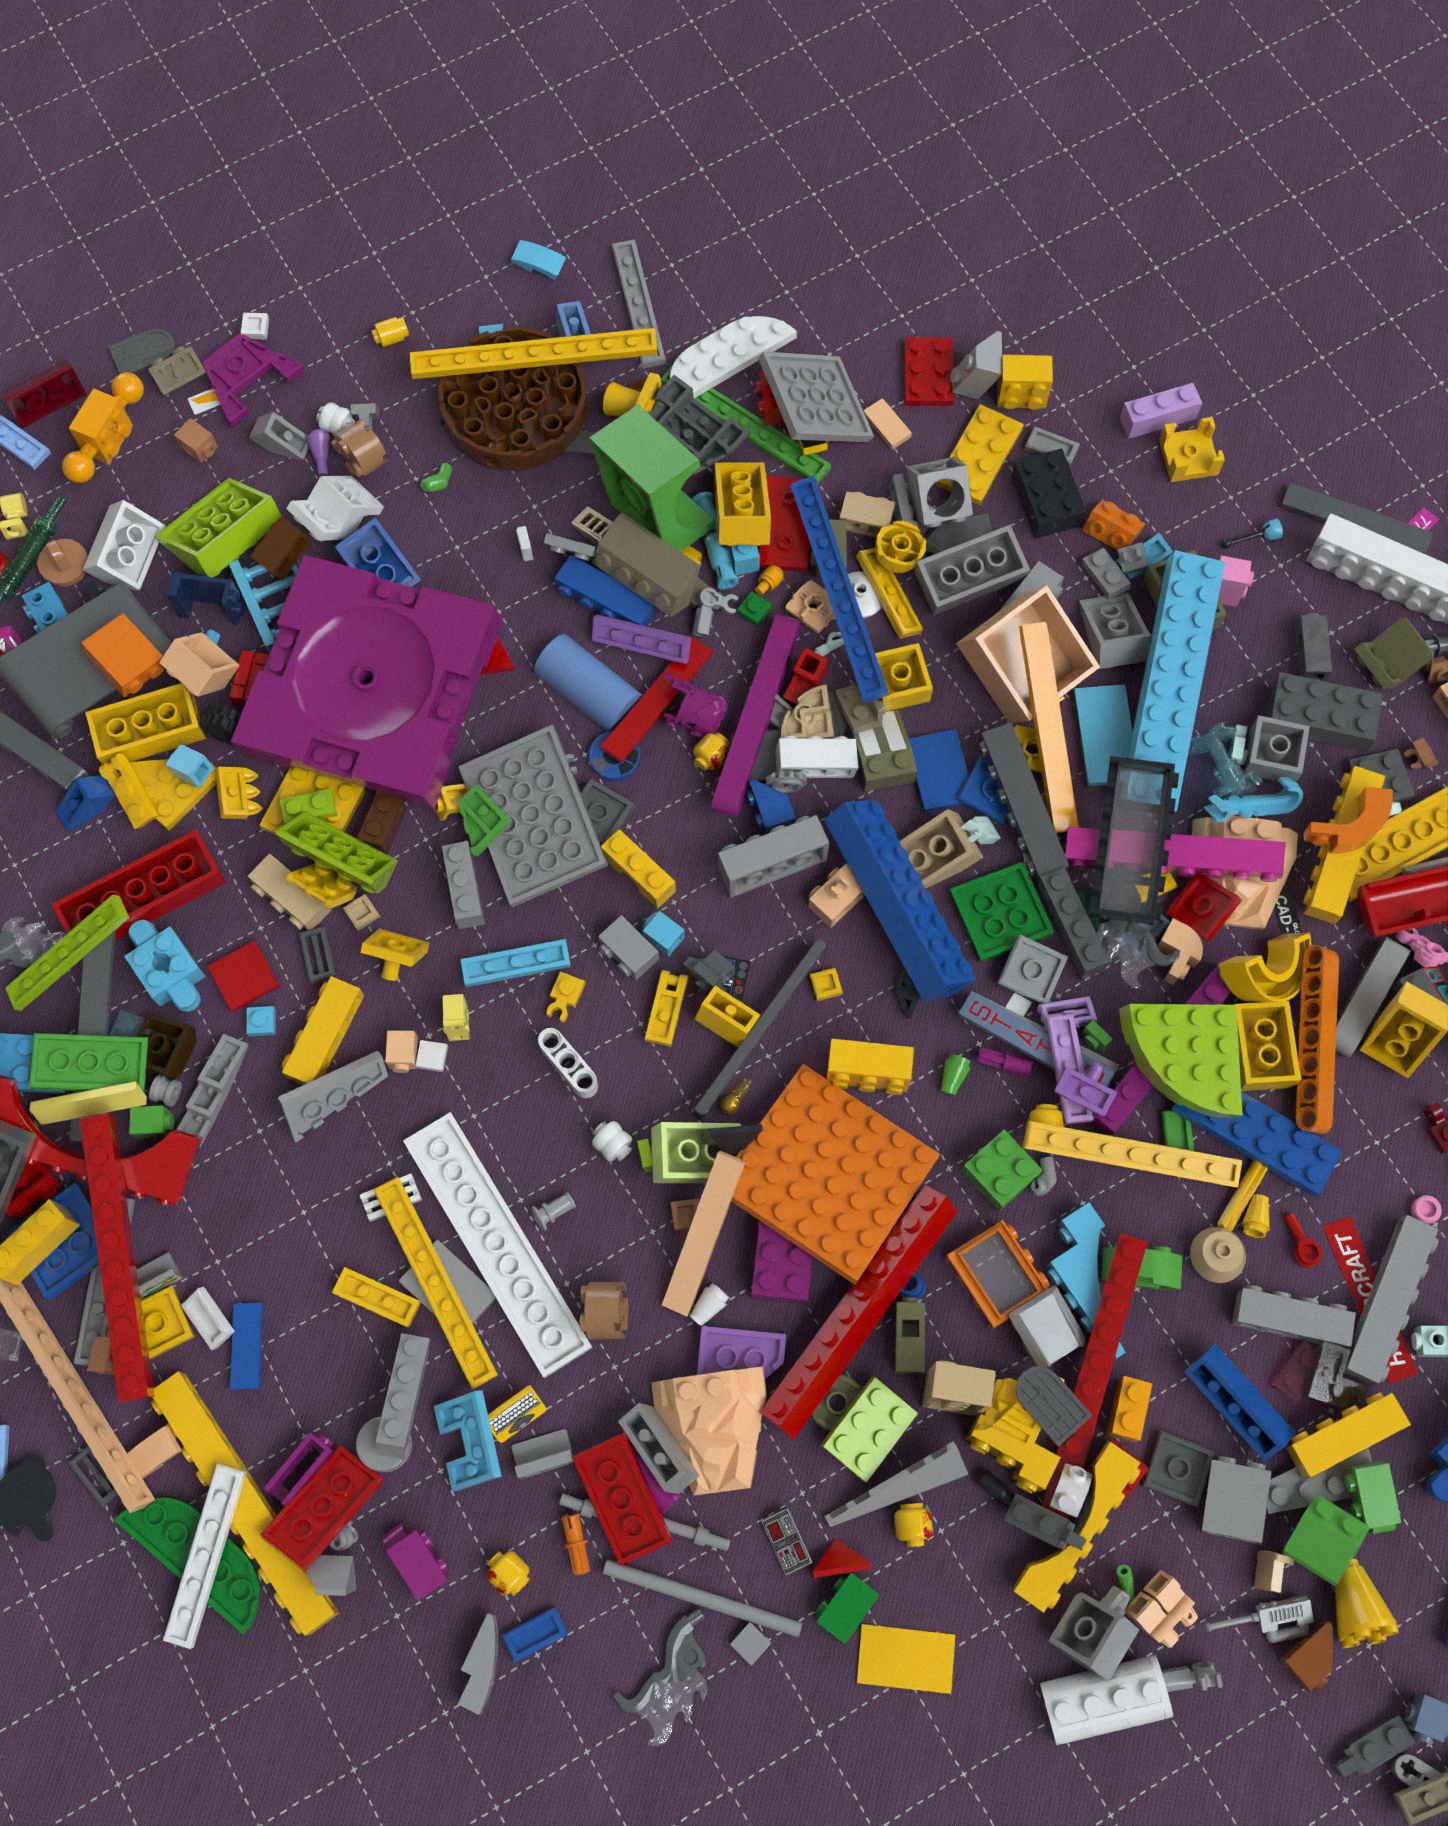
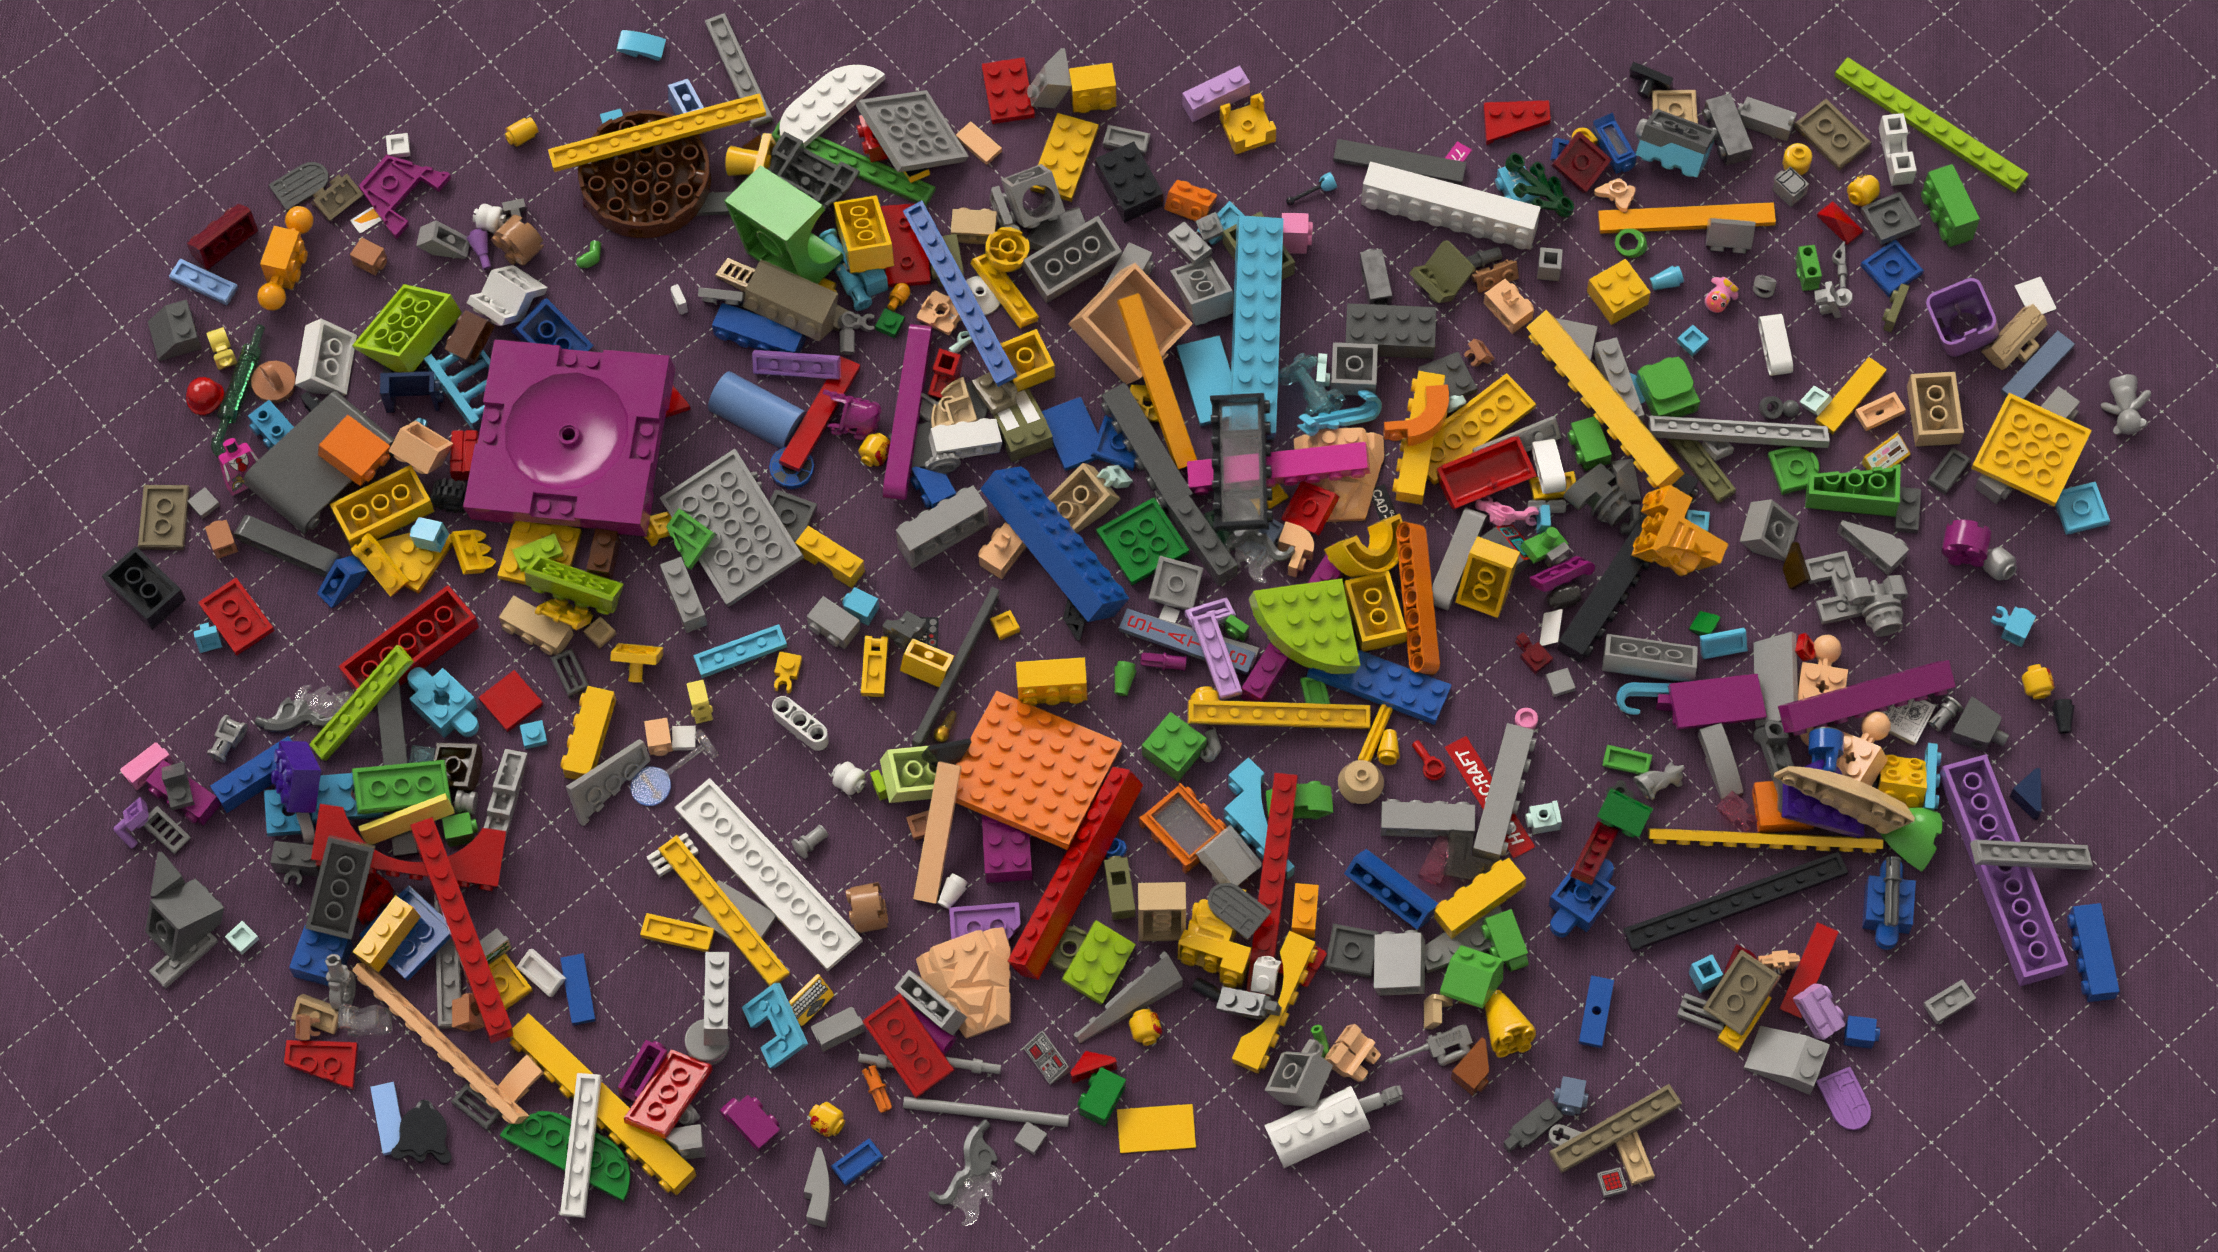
camera: 10 degrees left, 5 degrees down
(385, 1105) = (653, 784): none -> clear piece
(1086, 1090) = (1231, 668): medium lavender plate -> none

